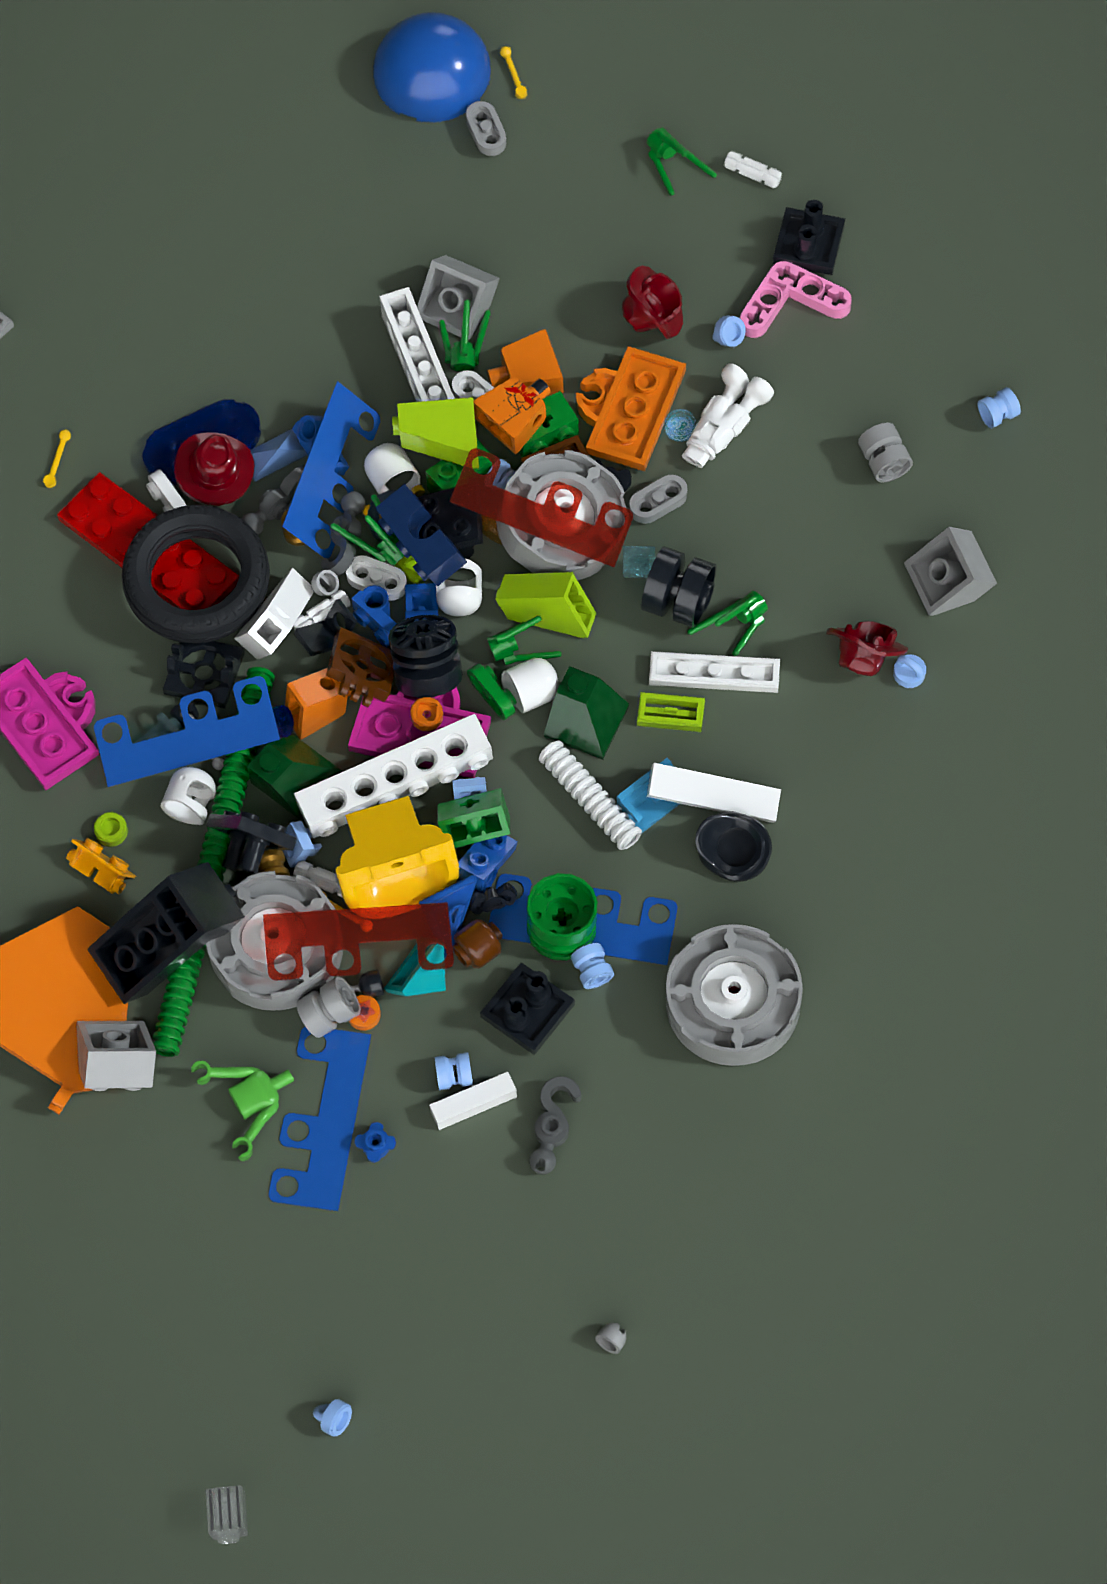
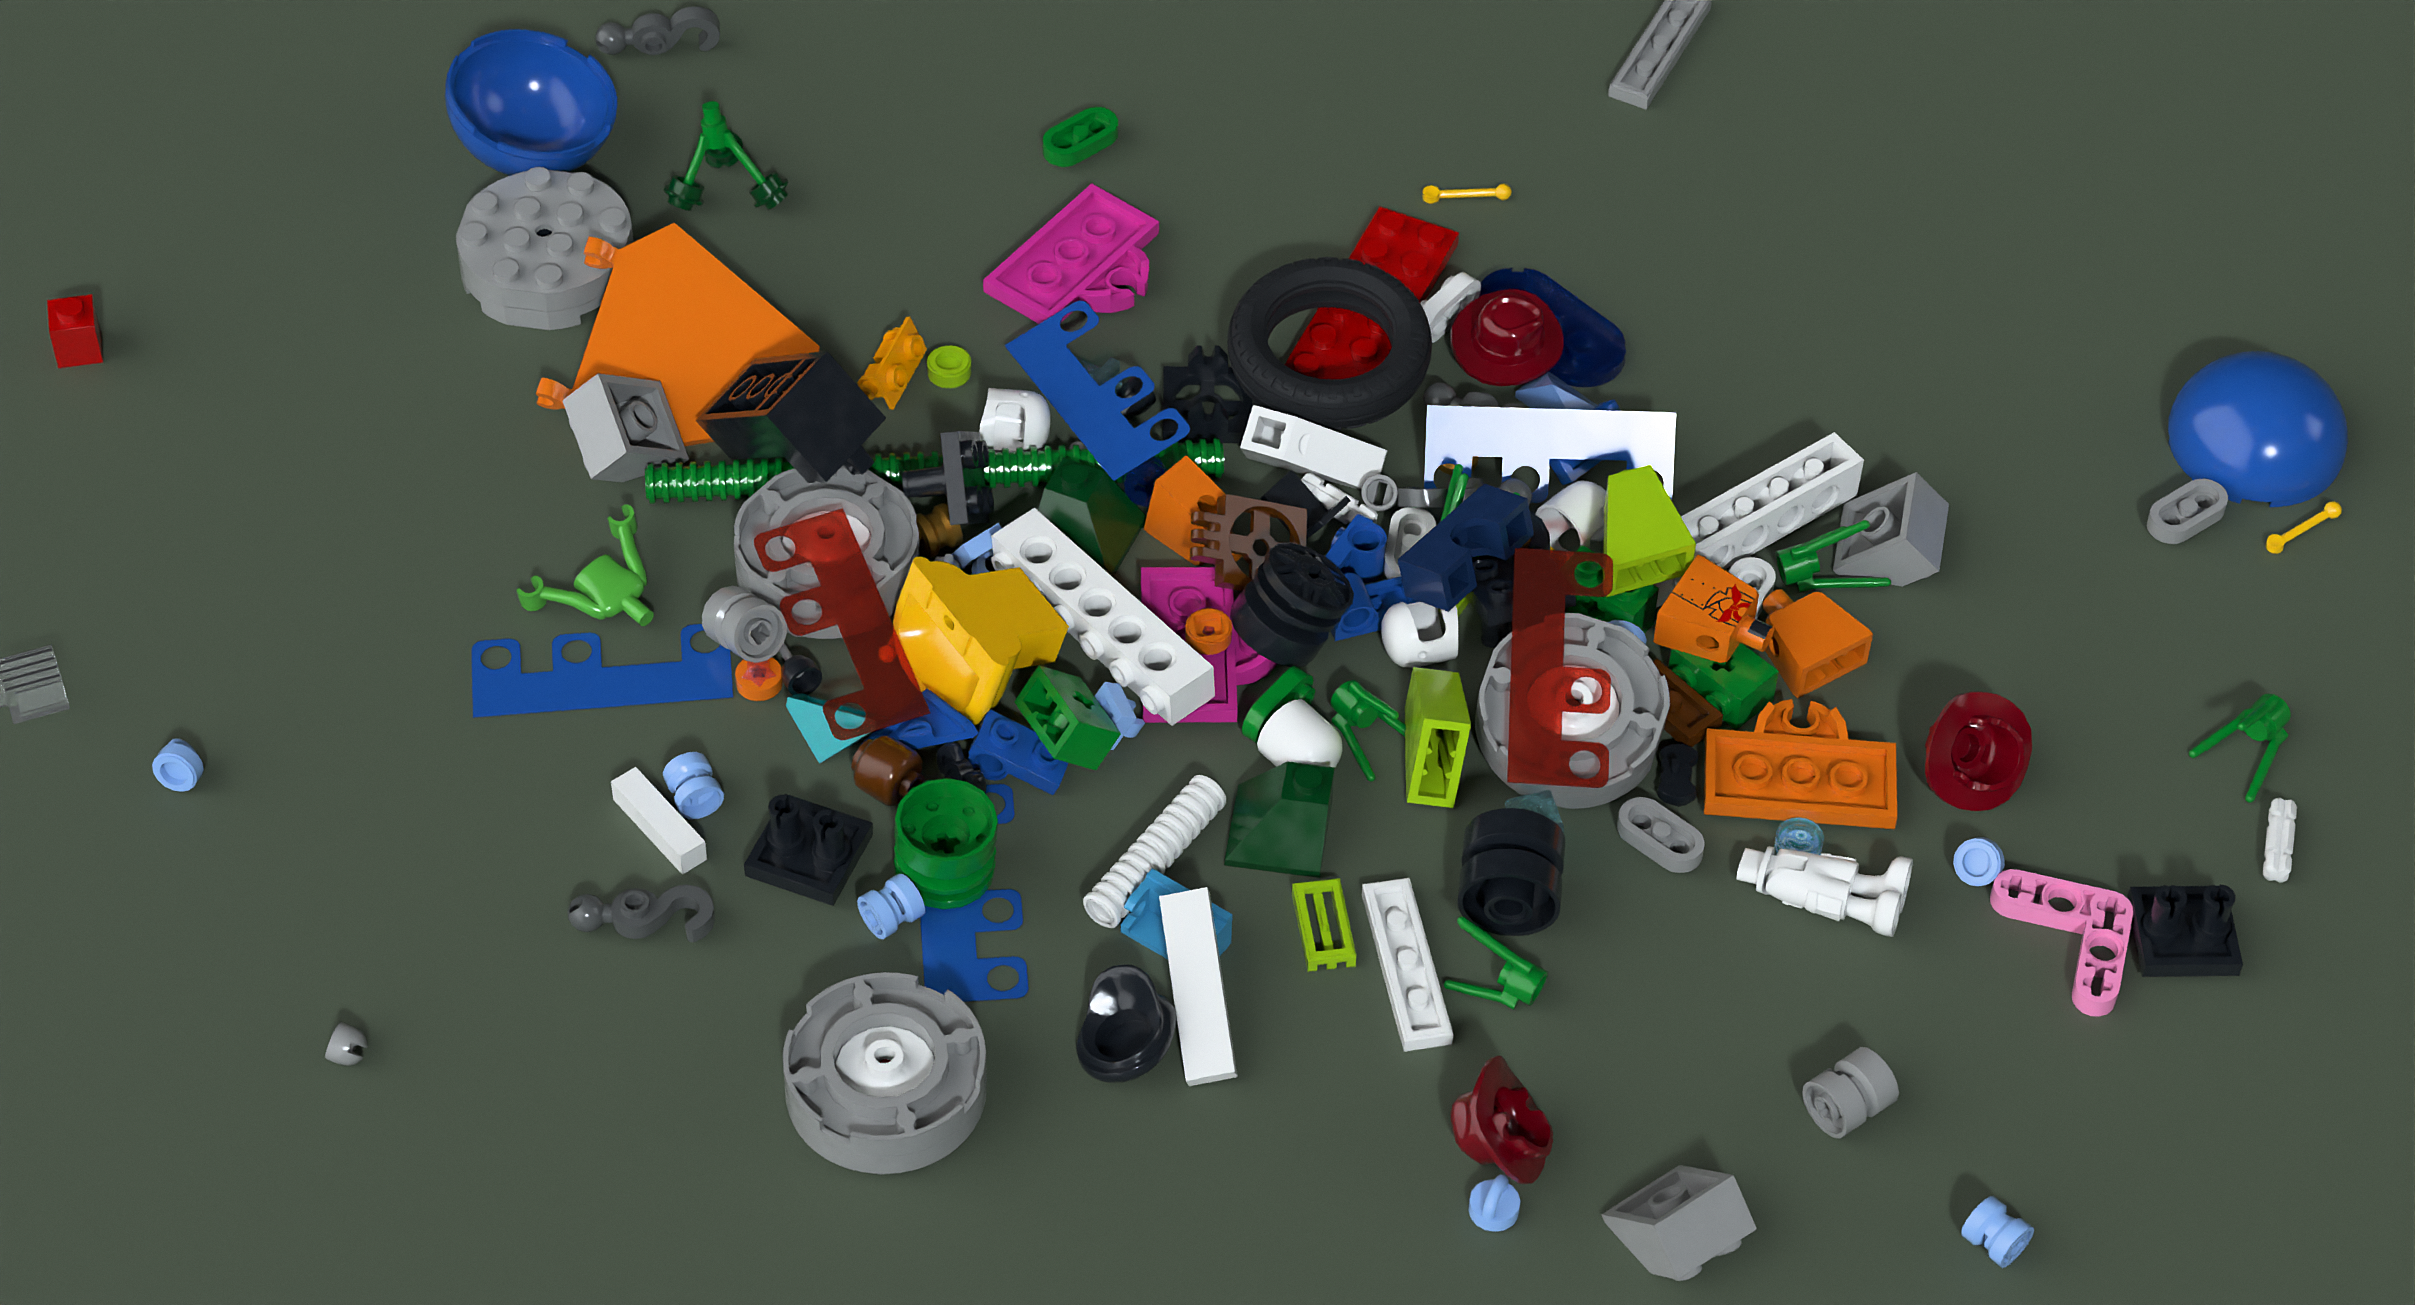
camera: 70 degrees right, 15 degrees down
(375, 1152) = (577, 738): blue plate -> none

